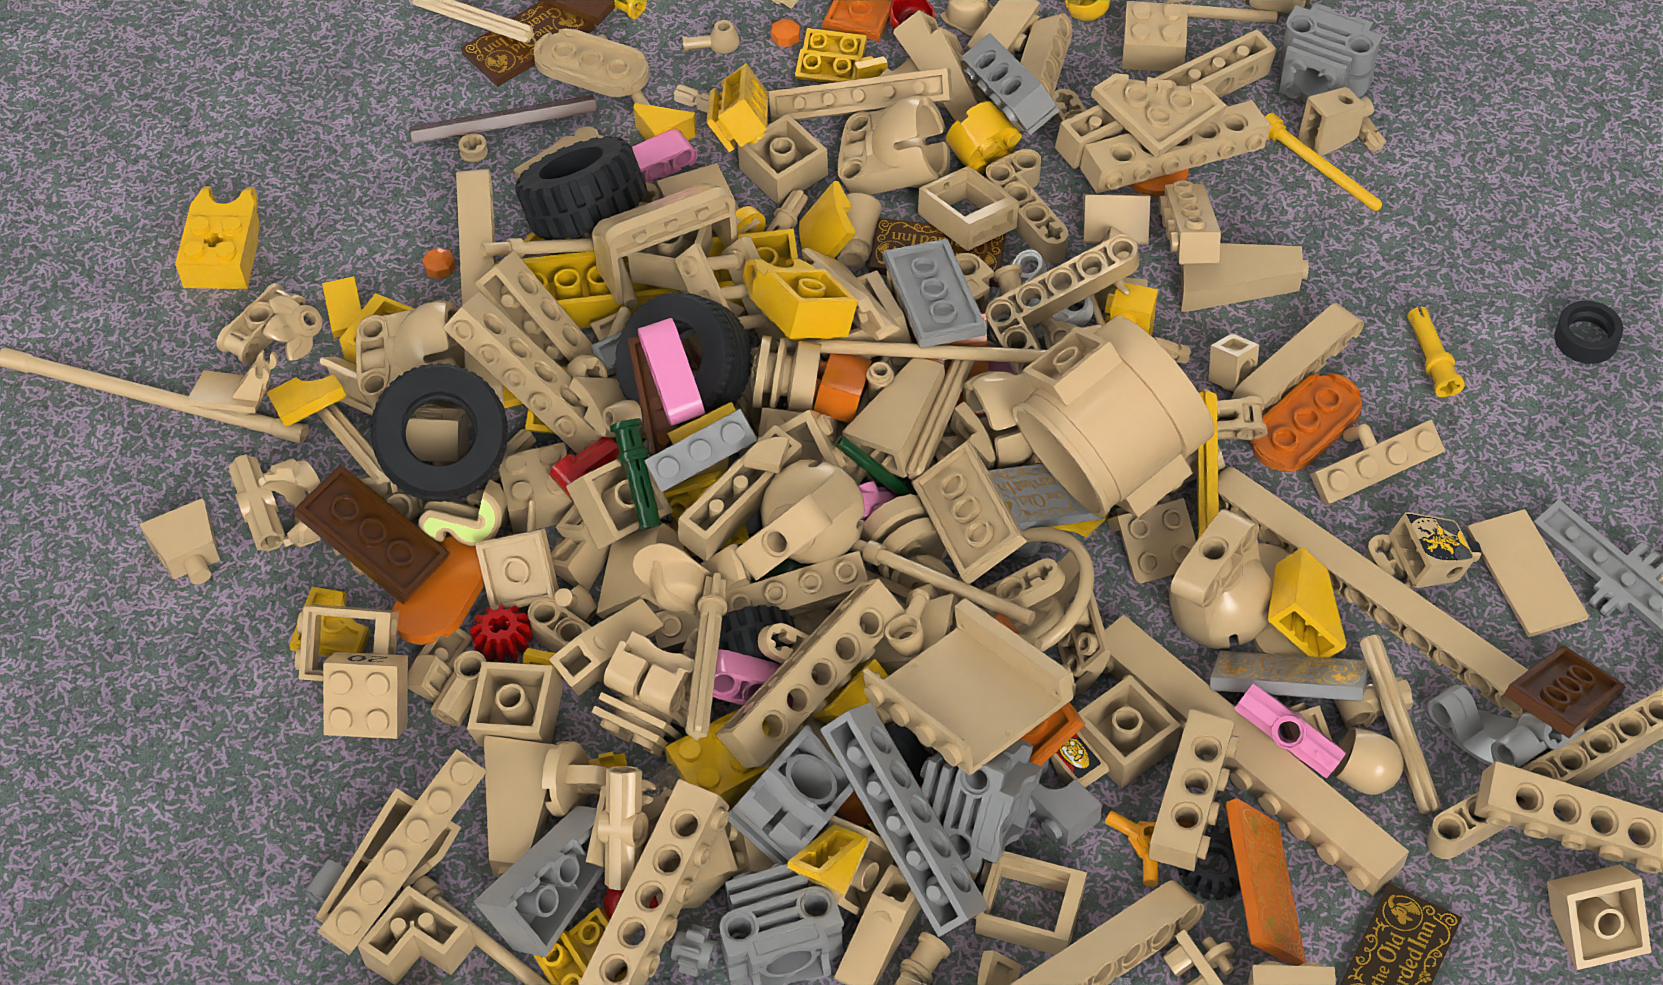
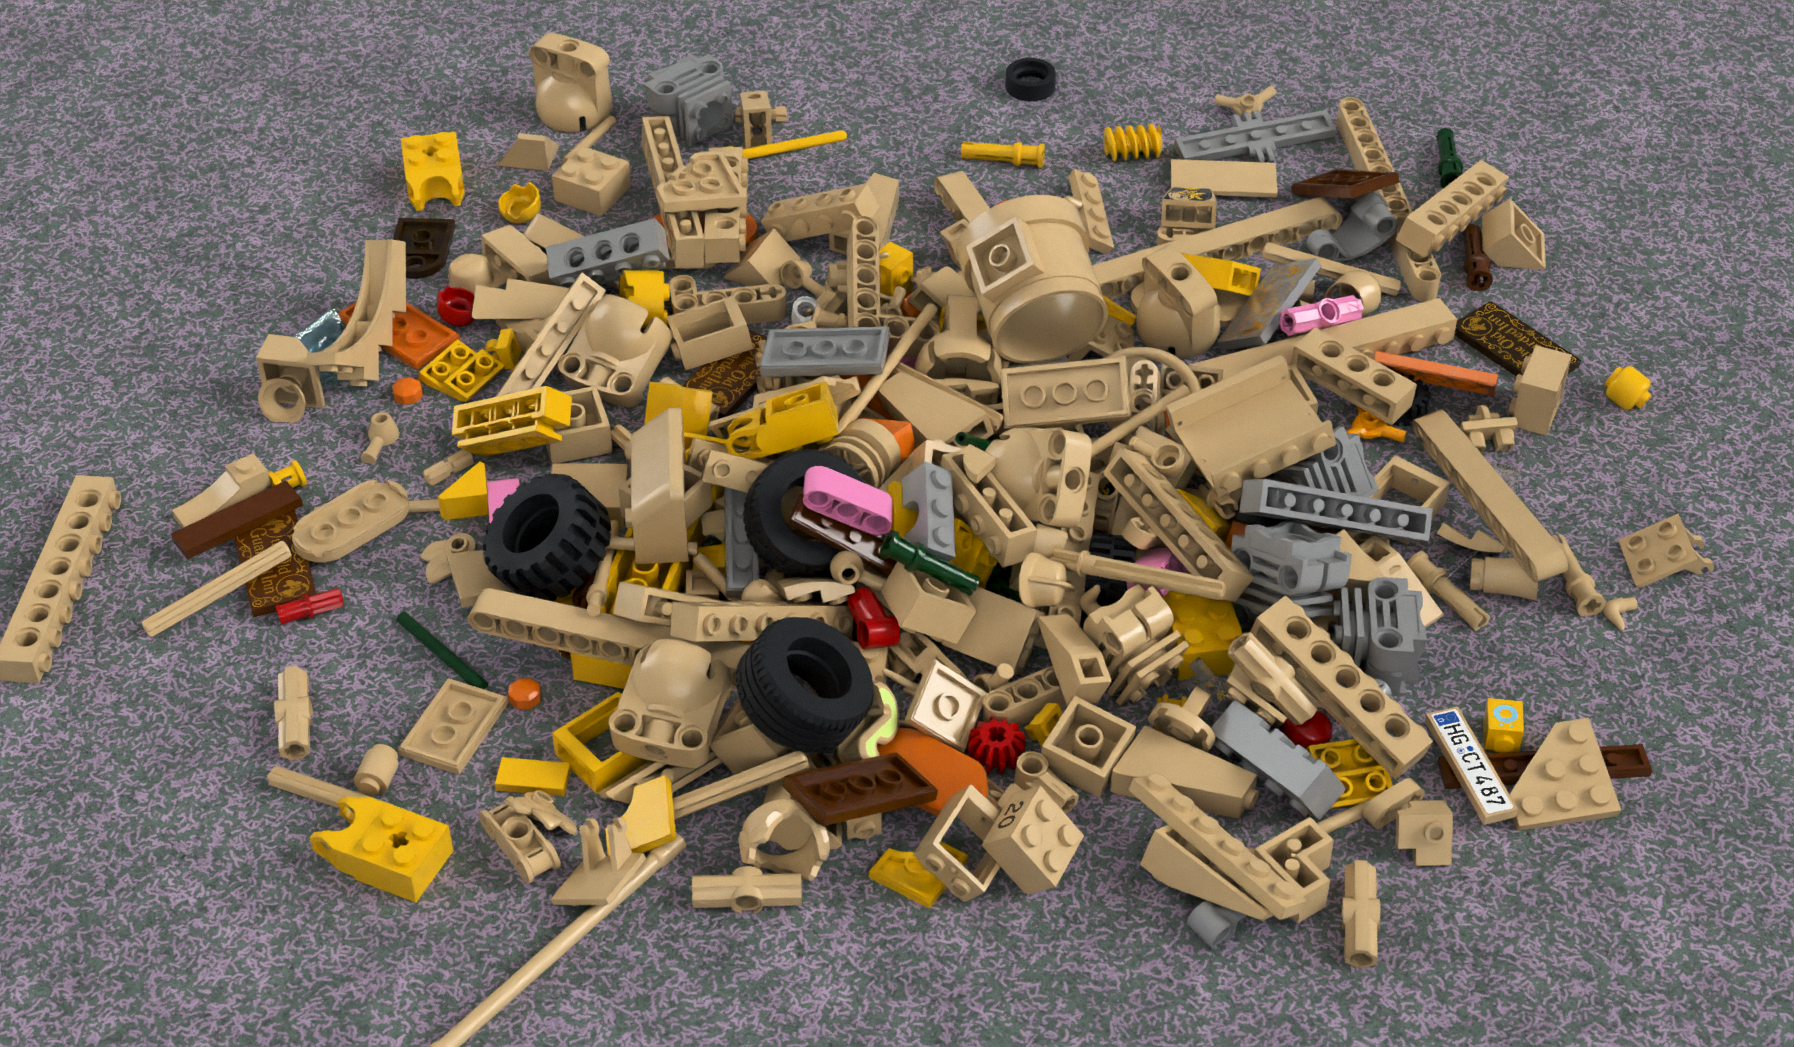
camera: 70 degrees left, 10 degrees down
(184, 541) = (767, 954): tan torso -> none
(276, 186) = (310, 787): none -> tan axle
(305, 200) = (376, 770): none -> tan brick
(352, 123) = (293, 713): none -> tan piece
(383, 231) = (453, 726): none -> tan tile
(452, 211) = (441, 651): none -> dark green bar
(473, 140) = (396, 641): tan bush -> none
(480, 80) = (310, 606): none -> red axle
(503, 119) = (372, 603): tile -> none
(830, 858) = (1367, 558): yellow slope -> none
(878, 376) = (889, 409): tan pin -> none
(1526, 884) = (1476, 263): none -> reddish brown pin
(1527, 463) = (1132, 141): none -> yellow piece

